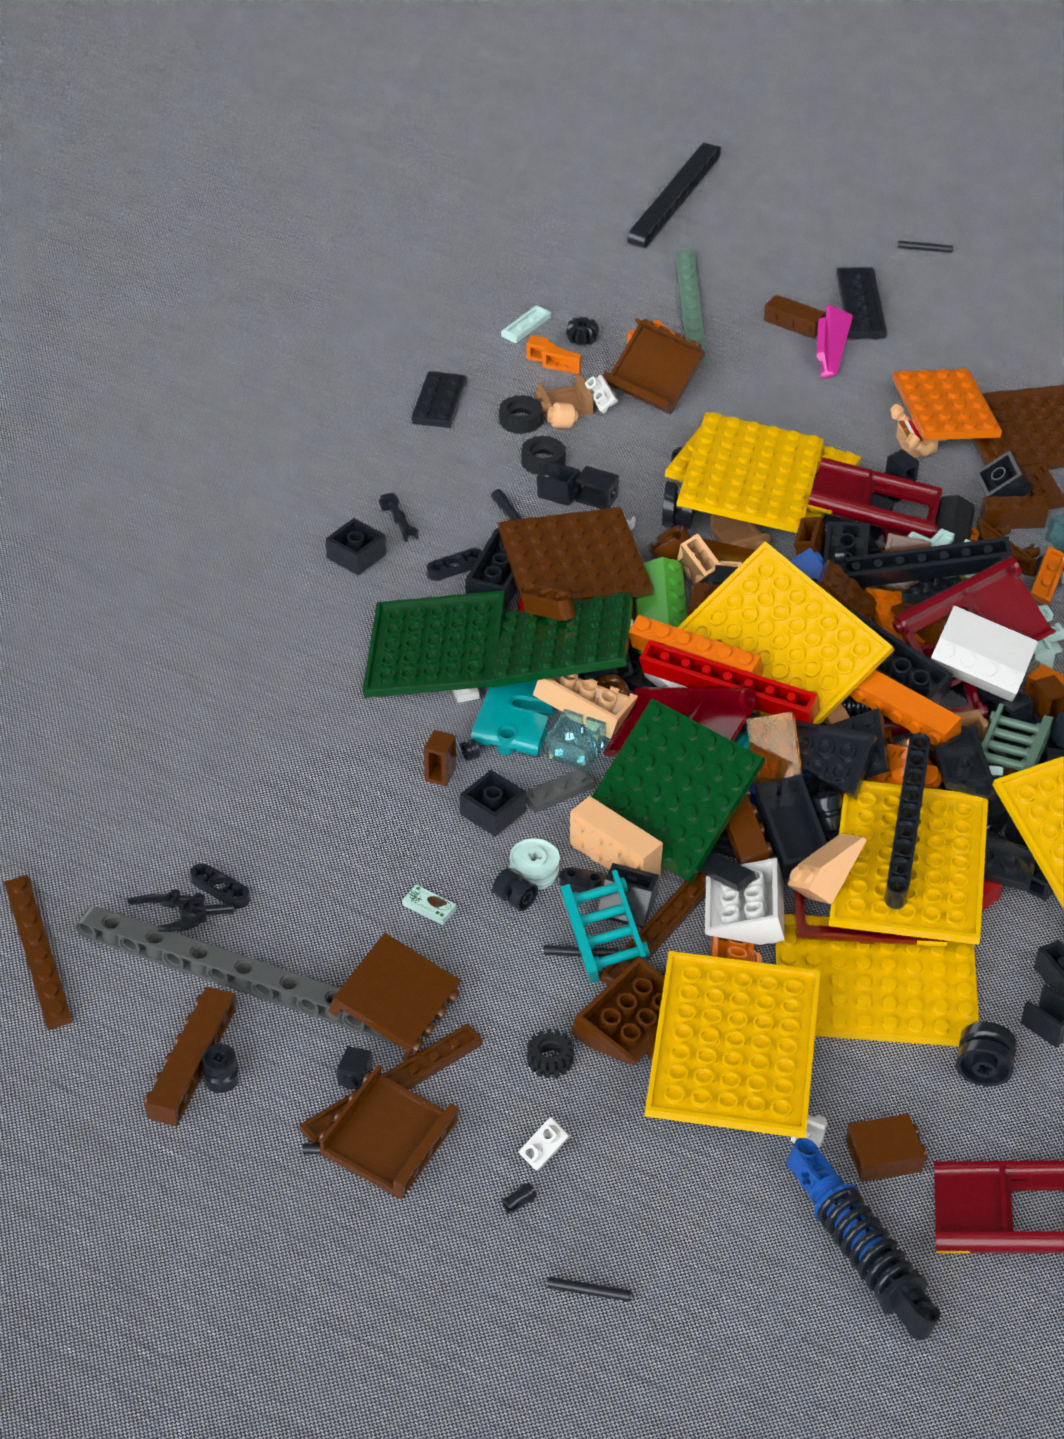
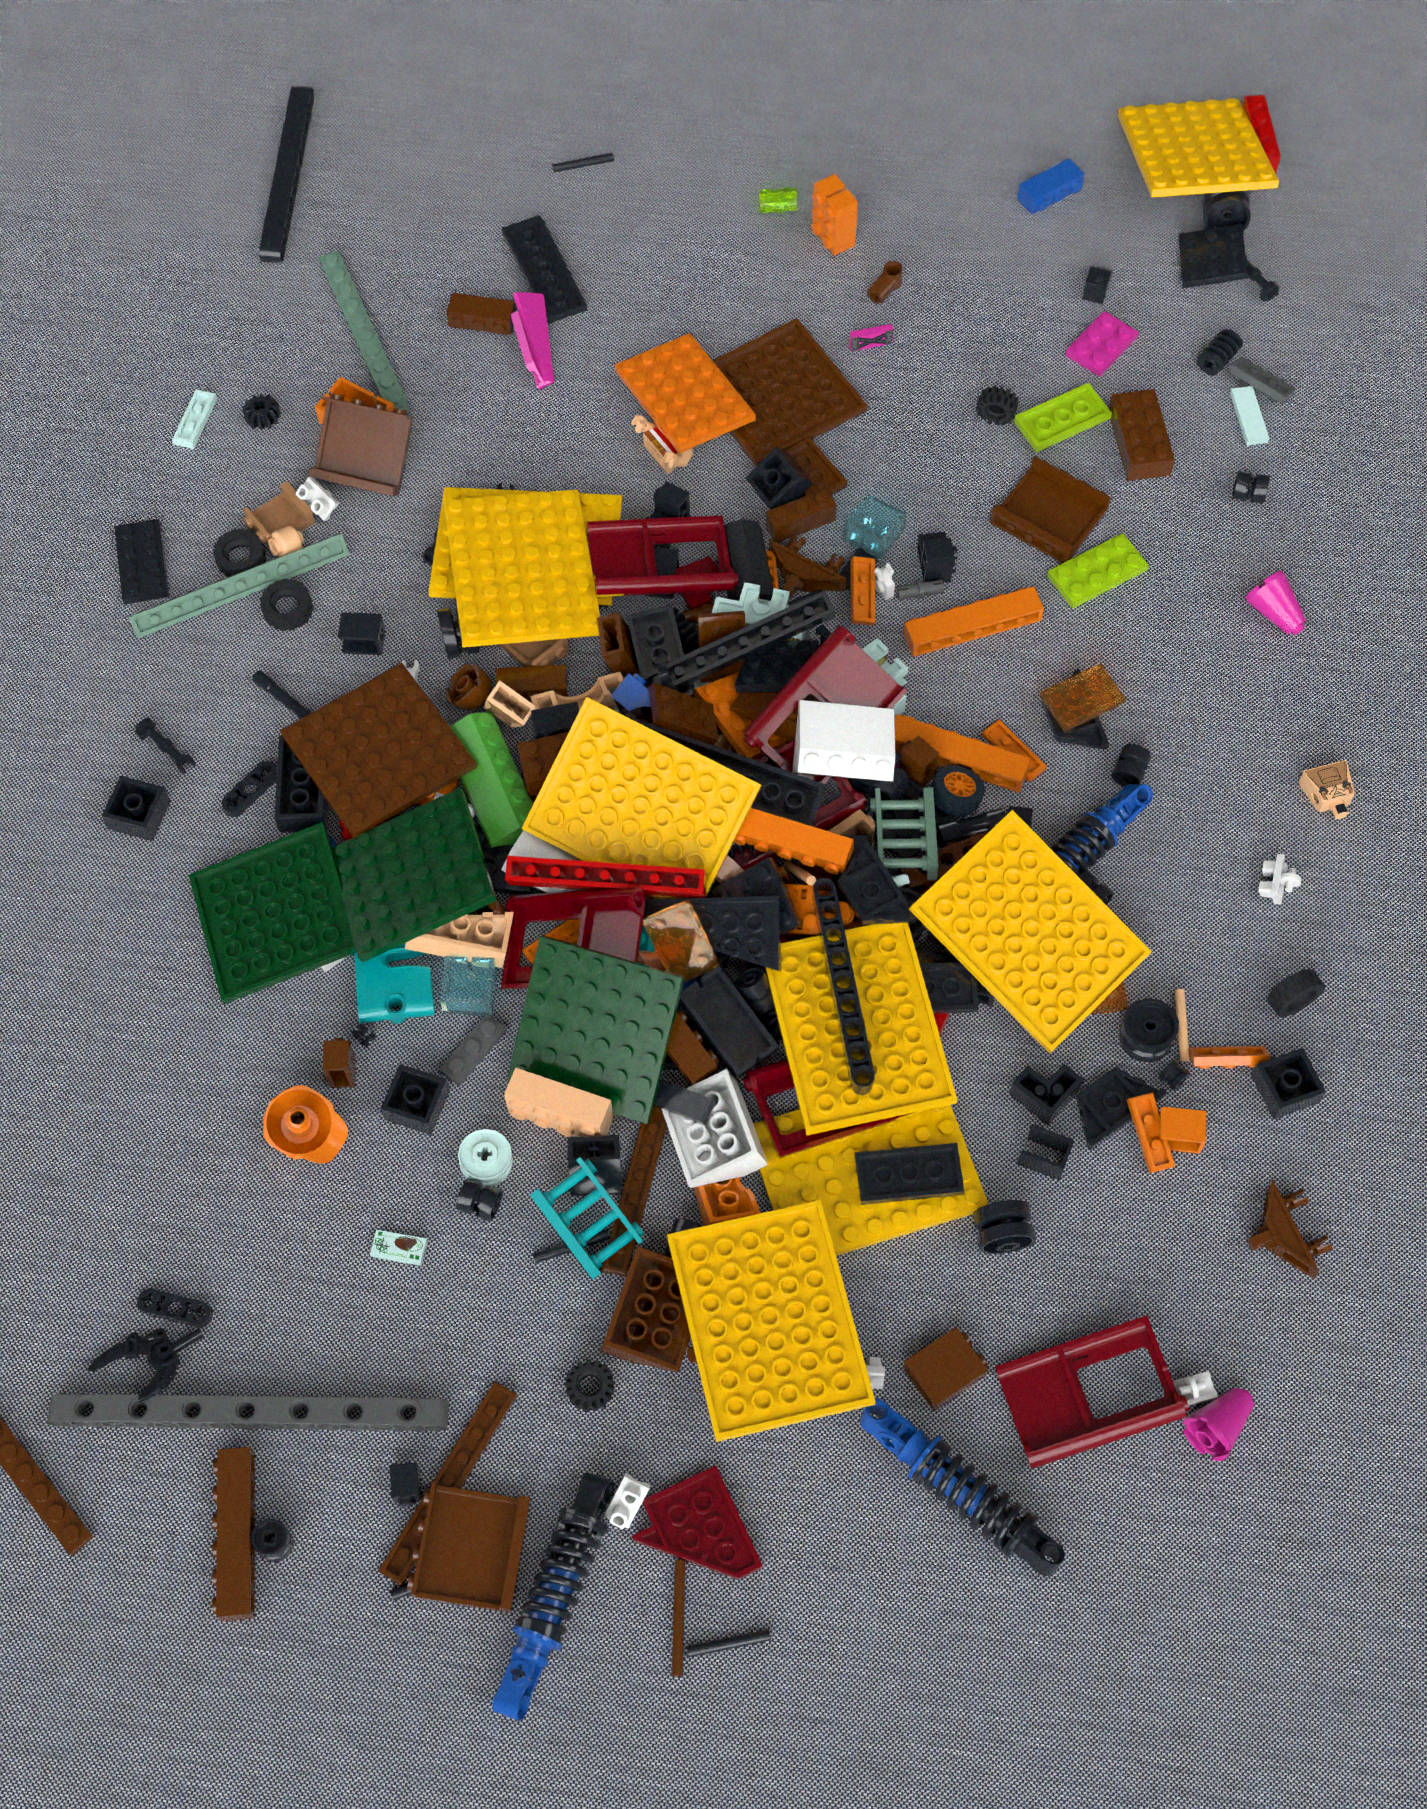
camera: 20 degrees left, 20 degrees up
(390, 788) = (304, 1125): none -> orange piece
(397, 994) = (414, 1384): reddish brown panel -> none
(446, 1188) = (541, 1618): none -> black piece
(509, 432) = (238, 585): none -> sand green plate
(524, 1195) = (625, 1568): black pin -> none
(547, 602) = (378, 832): reddish brown beam -> none
(551, 1254) = (678, 1618): none -> reddish brown bar
(552, 356) = (244, 461): orange slope -> none
(559, 484) = (320, 652): black piece -> none
(581, 879) = (540, 1157): black plate -> none
(603, 1189) = (700, 1526): none -> dark red wing
(649, 629) = (551, 845): orange brick -> none
(826, 869) = (784, 1071): light nougat slope -> none
(912, 987) = (909, 1173): none -> black plate

